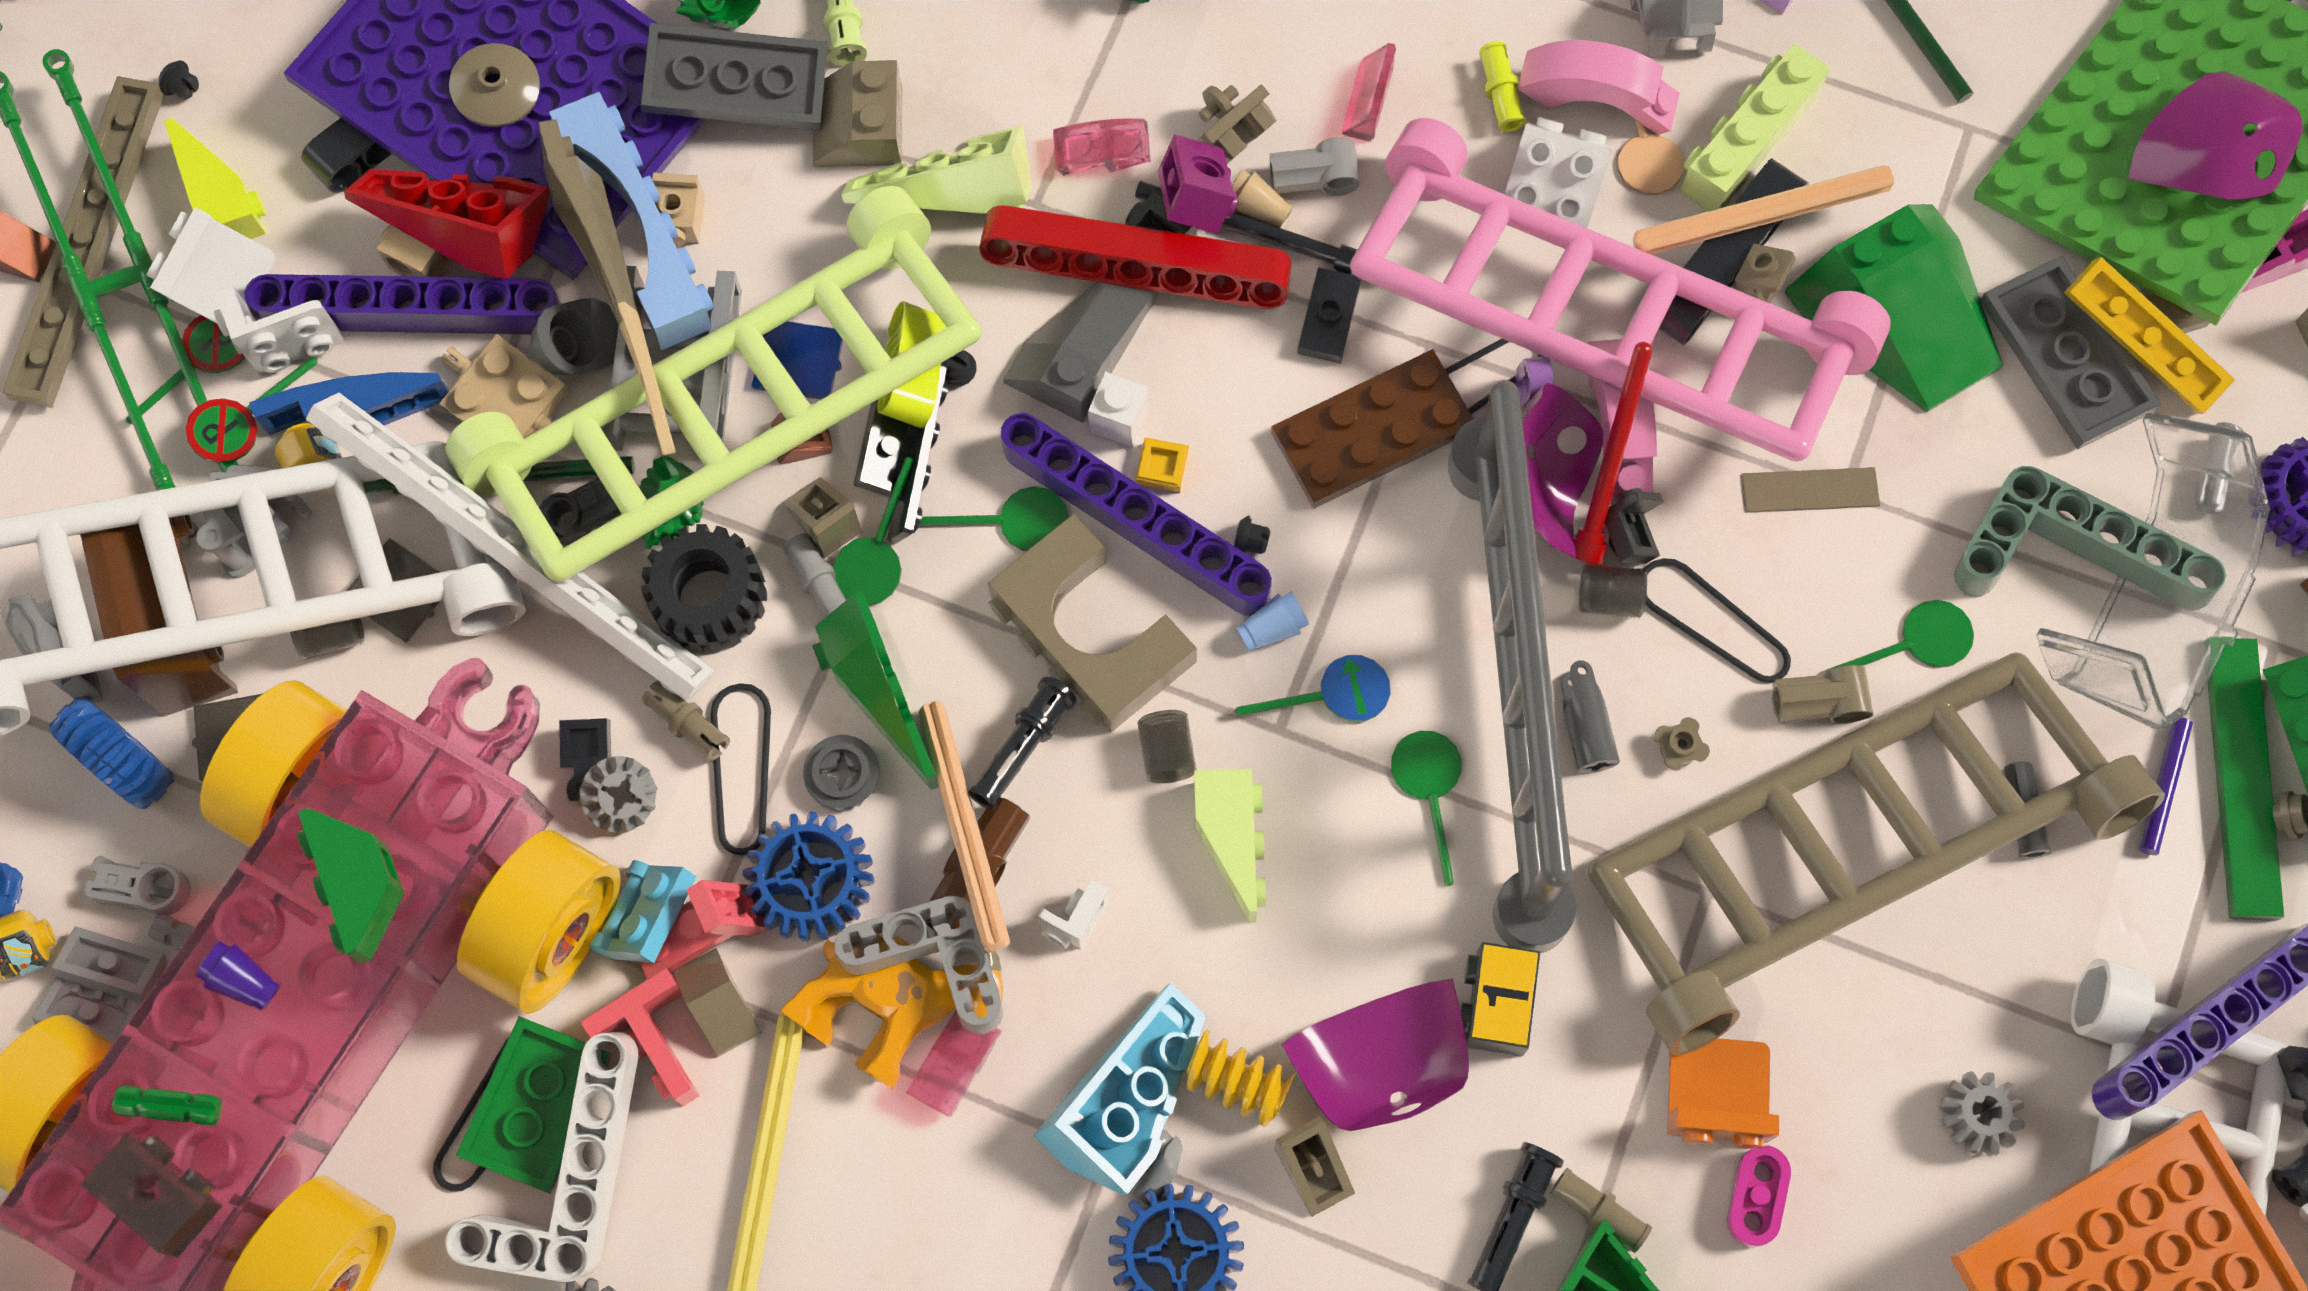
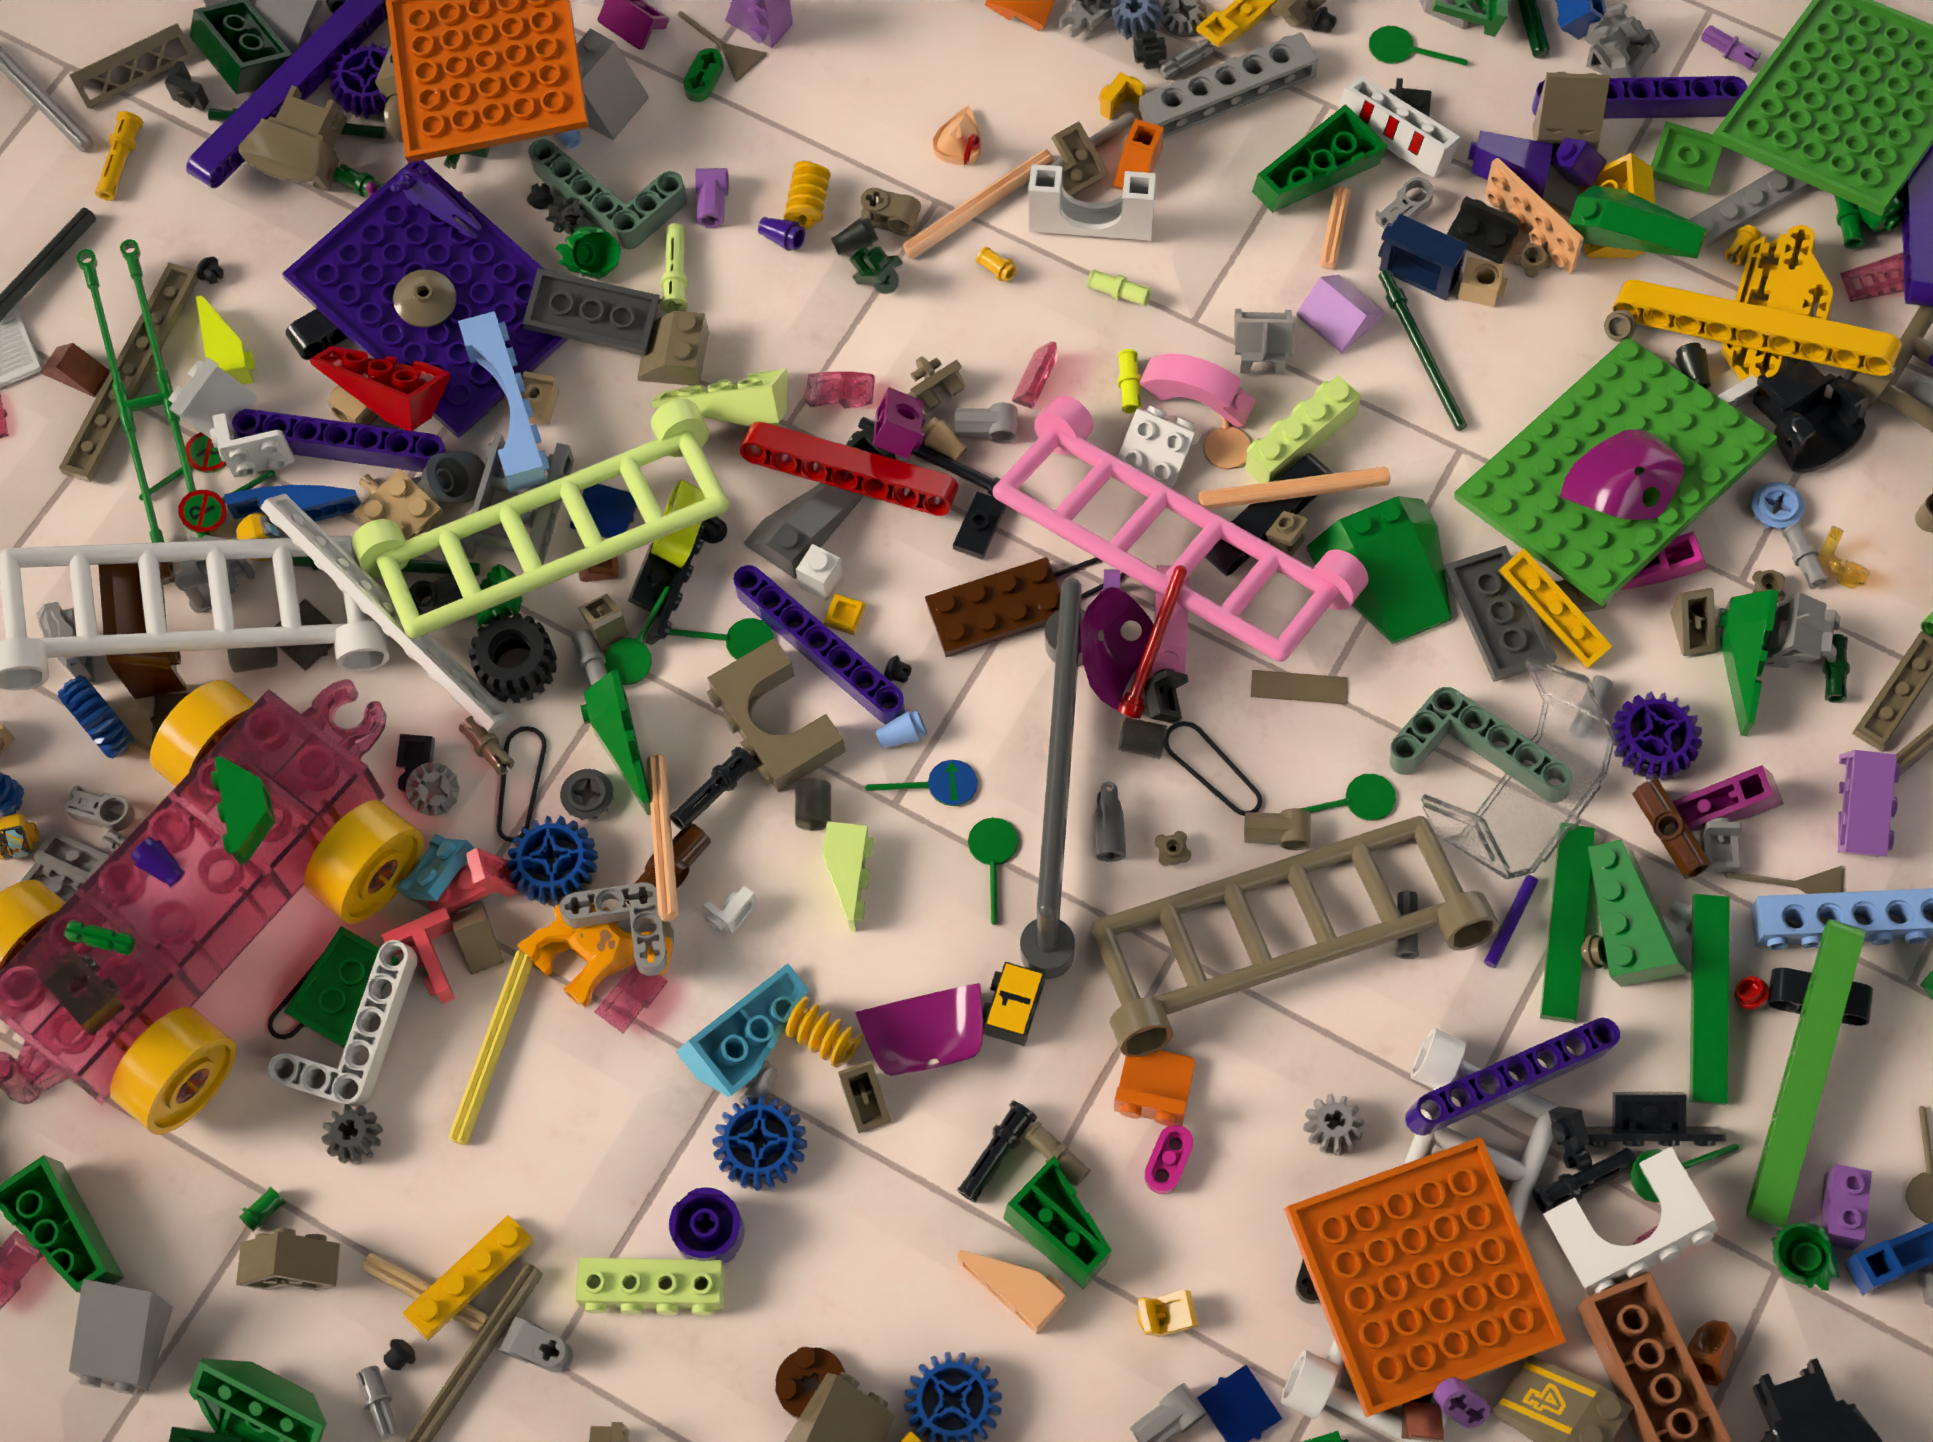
camera: 10 degrees right, 5 degrees down
(585, 212) = (472, 393): dark tan plate -> none

